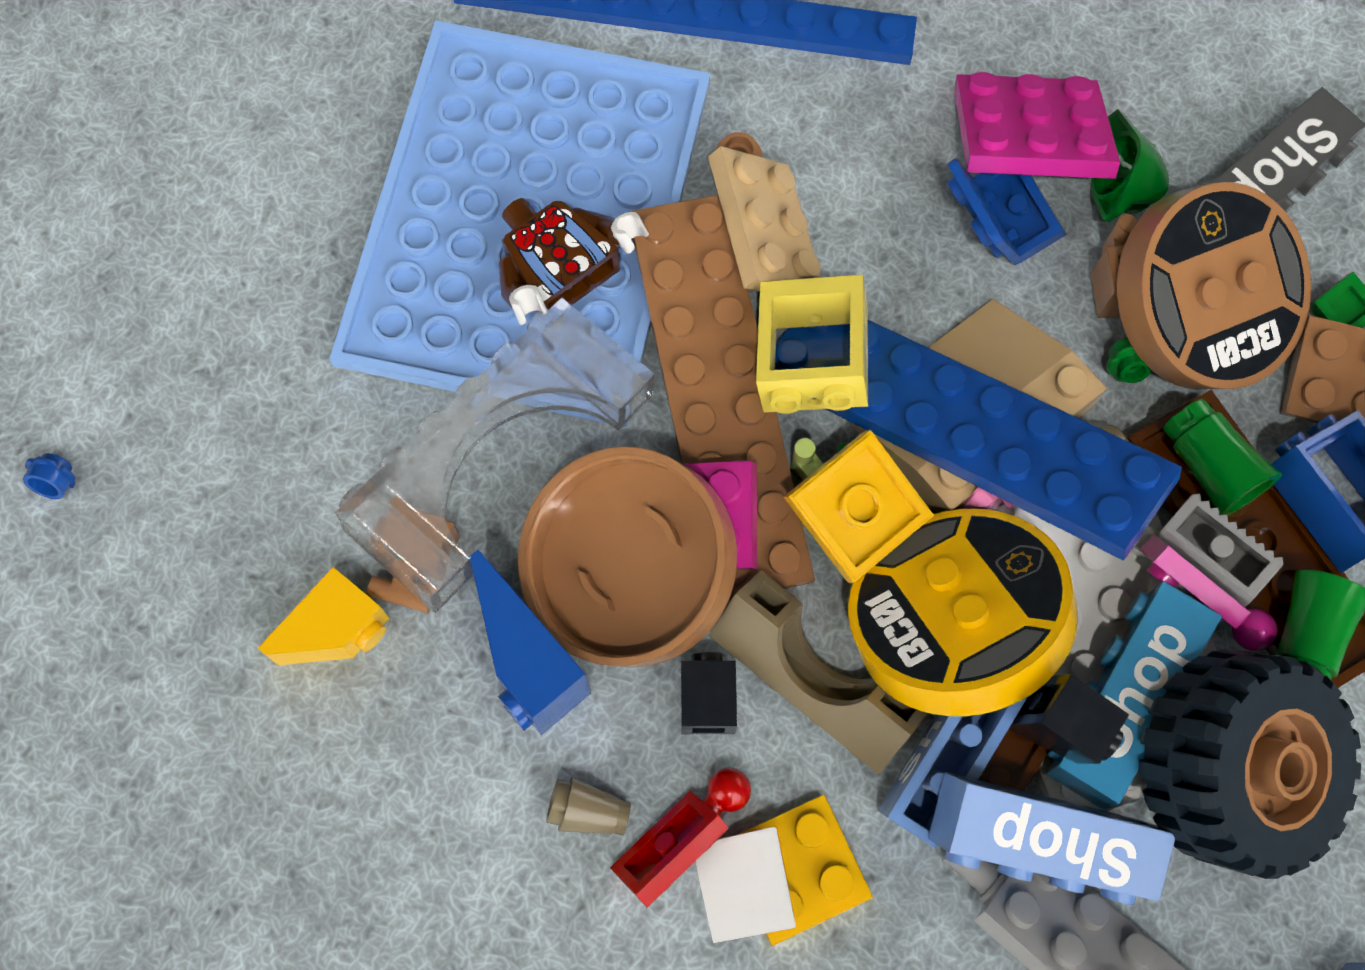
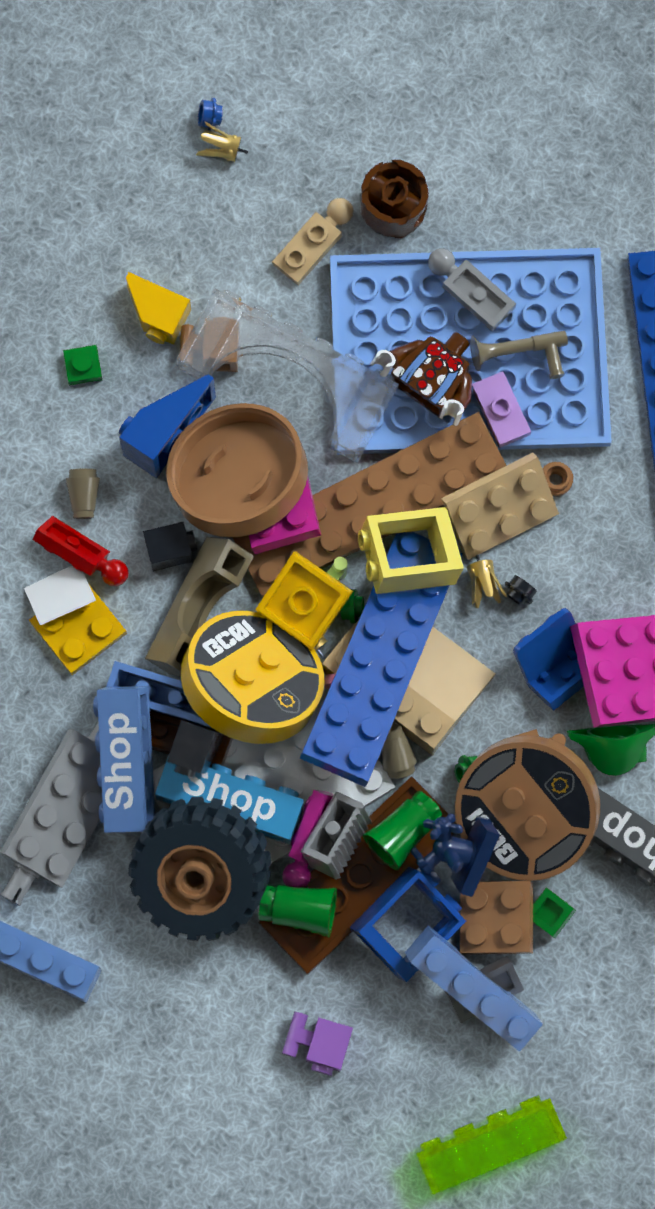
camera: 75 degrees right, 5 degrees up
(107, 457) = (228, 143): none -> pearl gold piece
(275, 250) = (394, 198): none -> reddish brown brick
(298, 379) = (313, 241): none -> tan plate
(379, 761) = (82, 365): none -> green plate
(444, 180) = (472, 289): none -> light grey plate
(541, 188) = (549, 342): none -> dark tan piece
(628, 186) = (501, 409): none -> lavender plate
(871, 272) = (483, 574): none -> pearl gold piece
(886, 236) = (520, 590): none -> black plate
(1272, 383) = (464, 857): none -> dark blue piece

